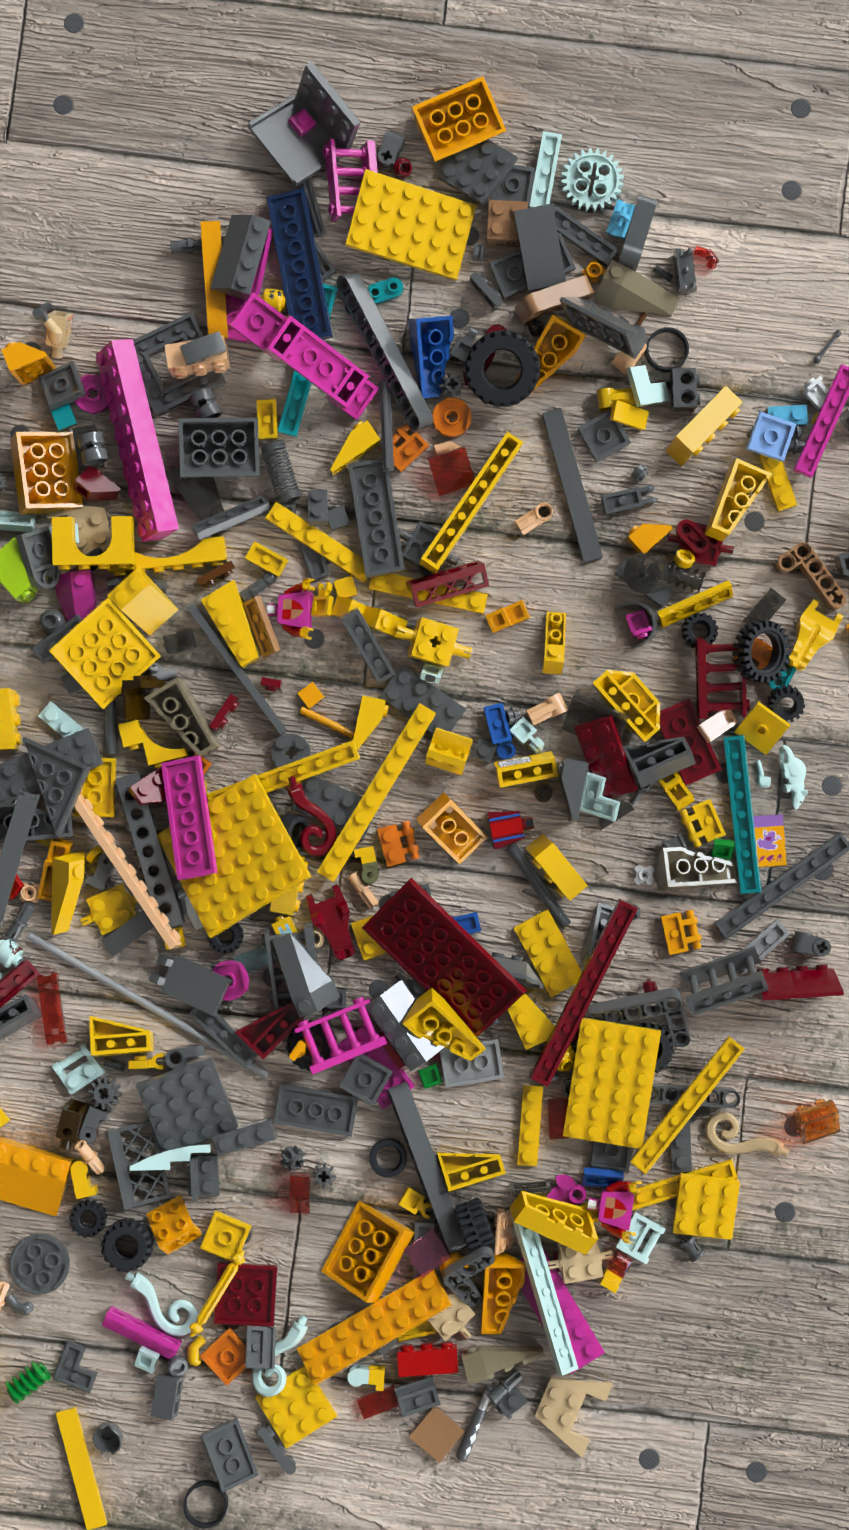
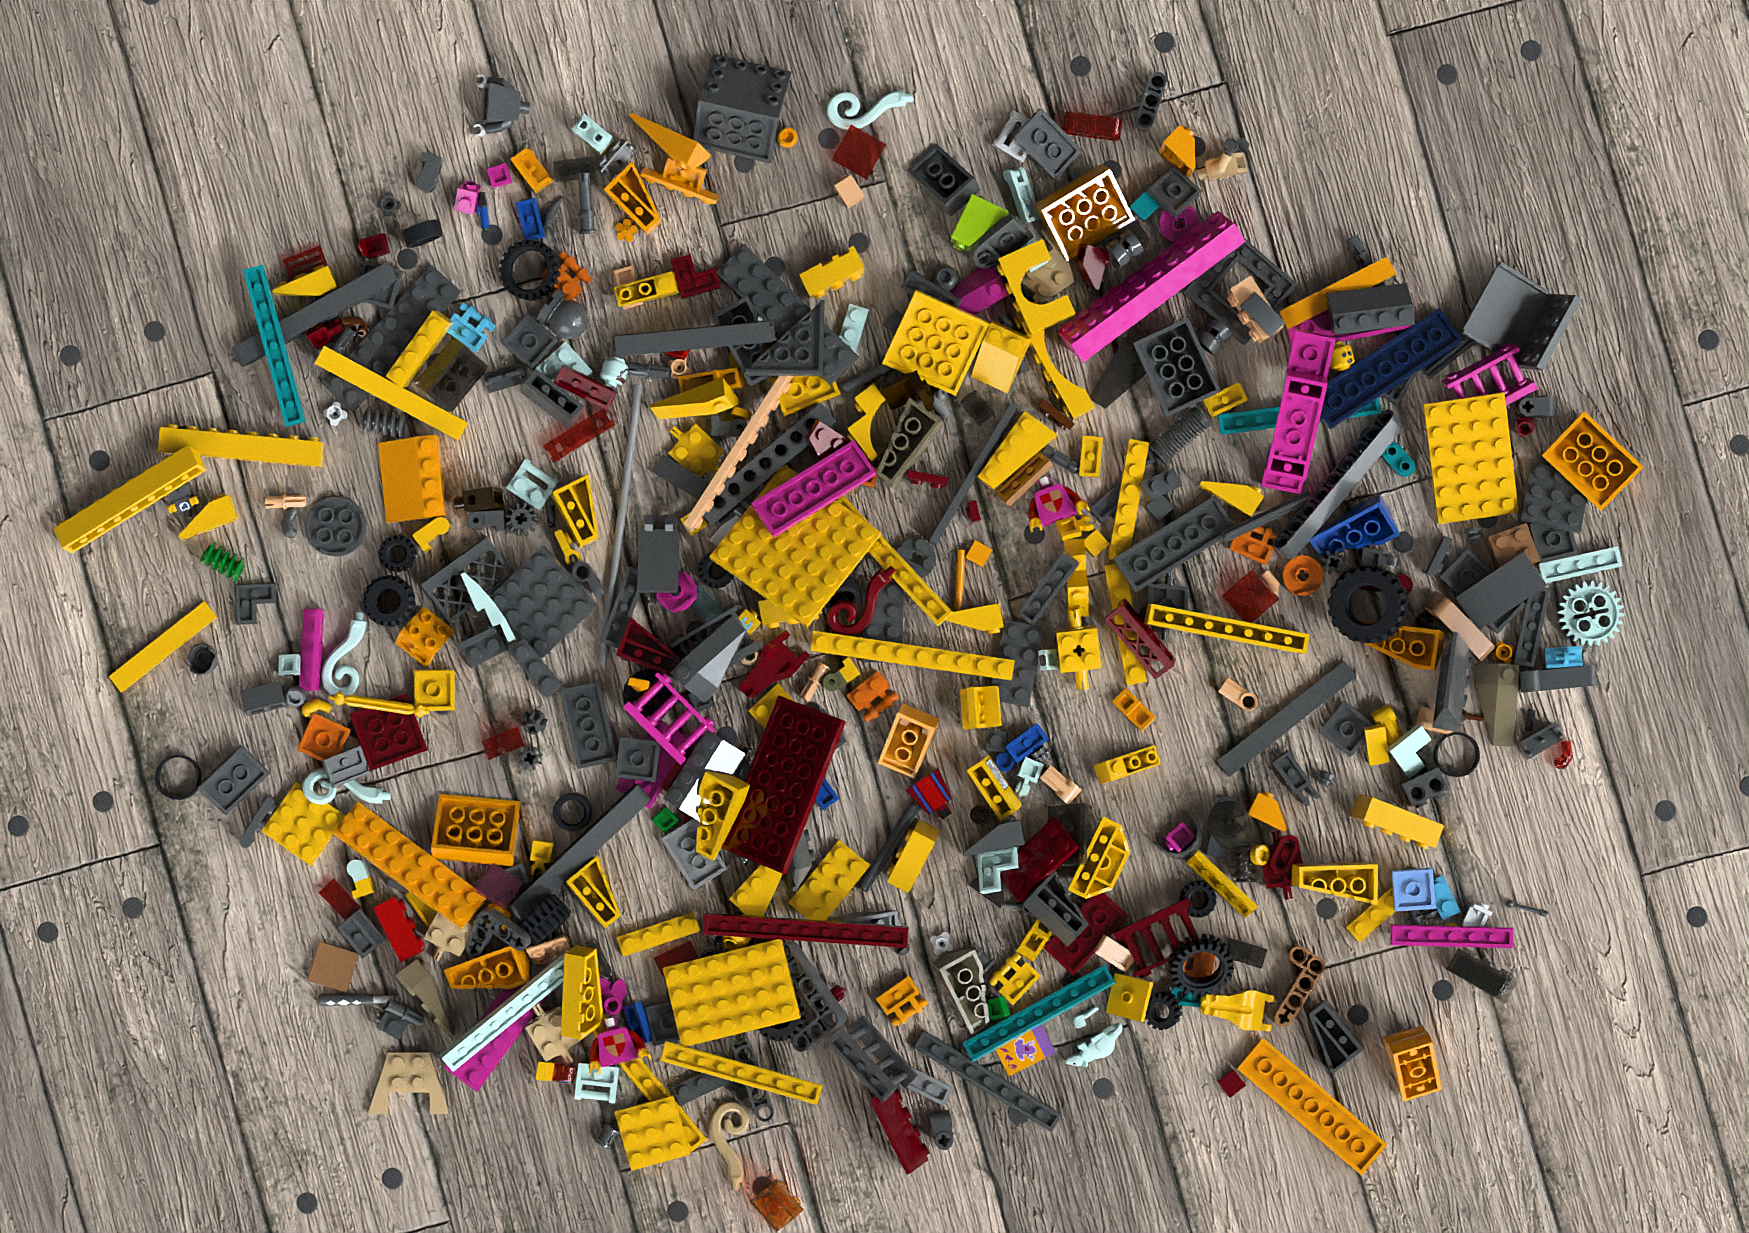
camera: 70 degrees right, 0 degrees up
(89, 1157) = (456, 530): light nougat axle -> none
(231, 517) = (1116, 406): dark grey plate -> none
(302, 122) = (1526, 311): dark pink plate -> none

